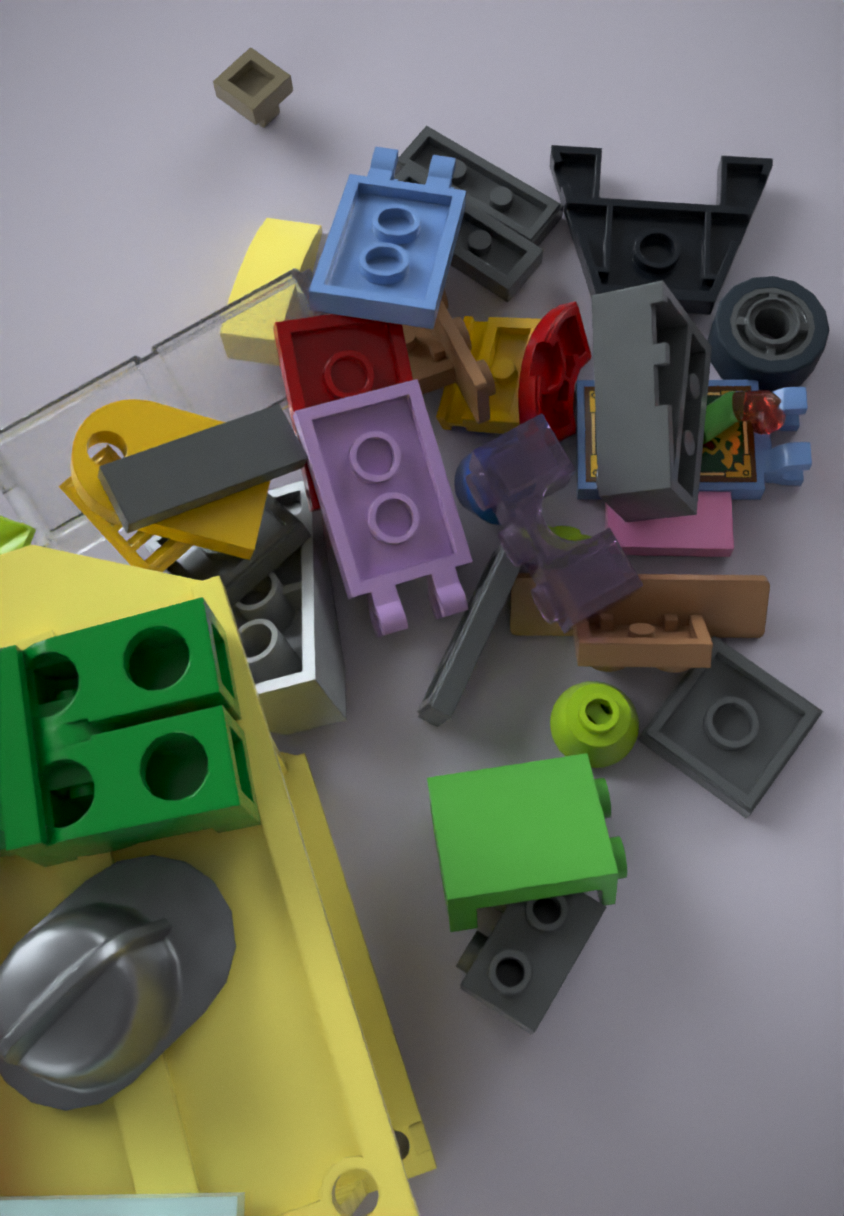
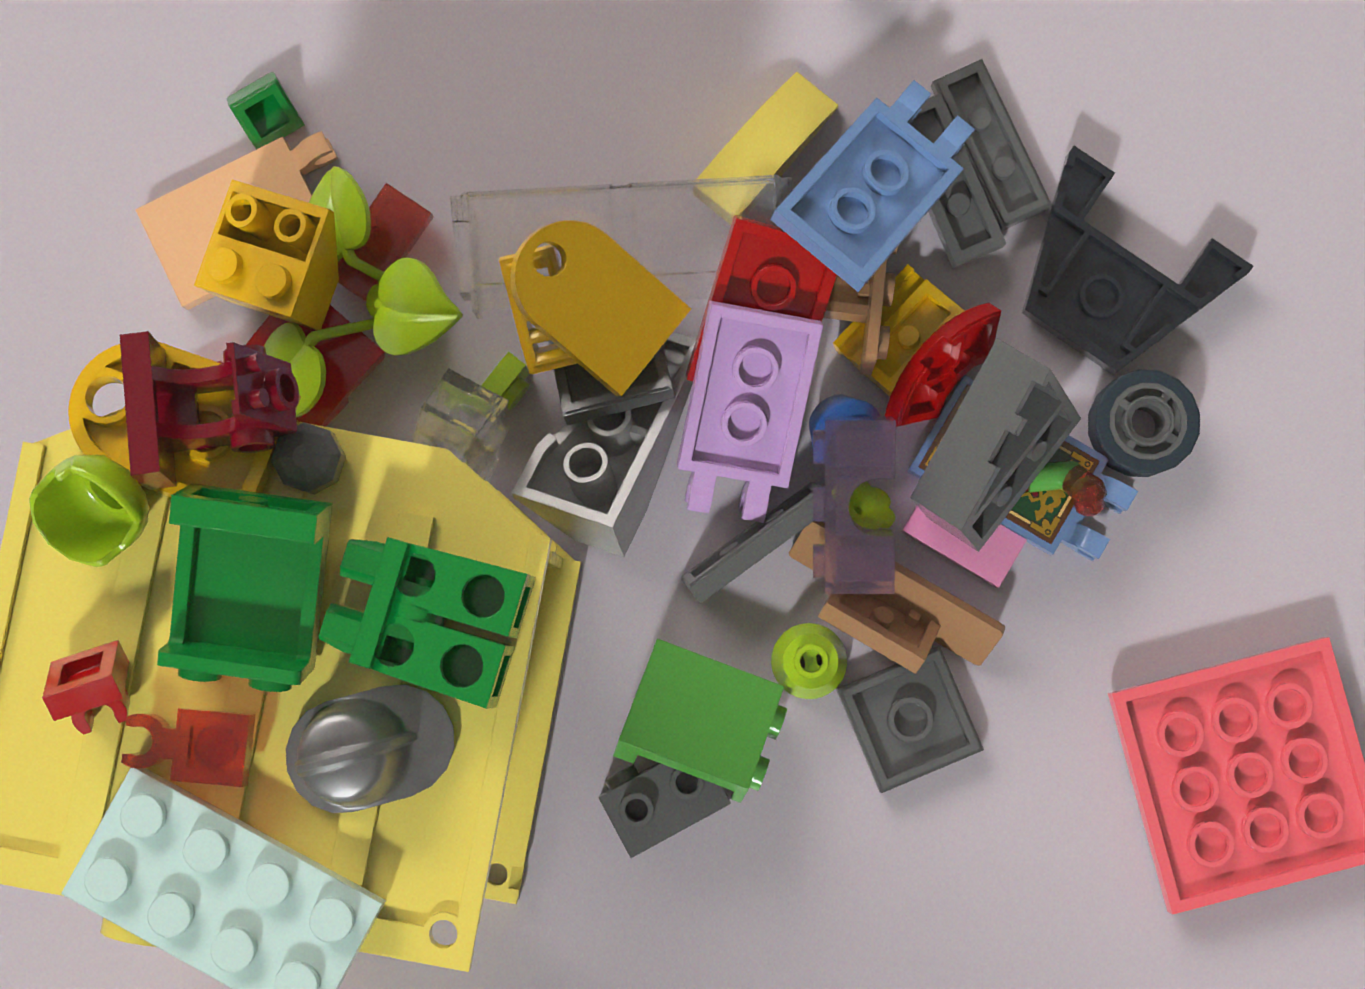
camera: 30 degrees right, 15 degrees up
(201, 468) = (616, 312): dark grey tile -> none

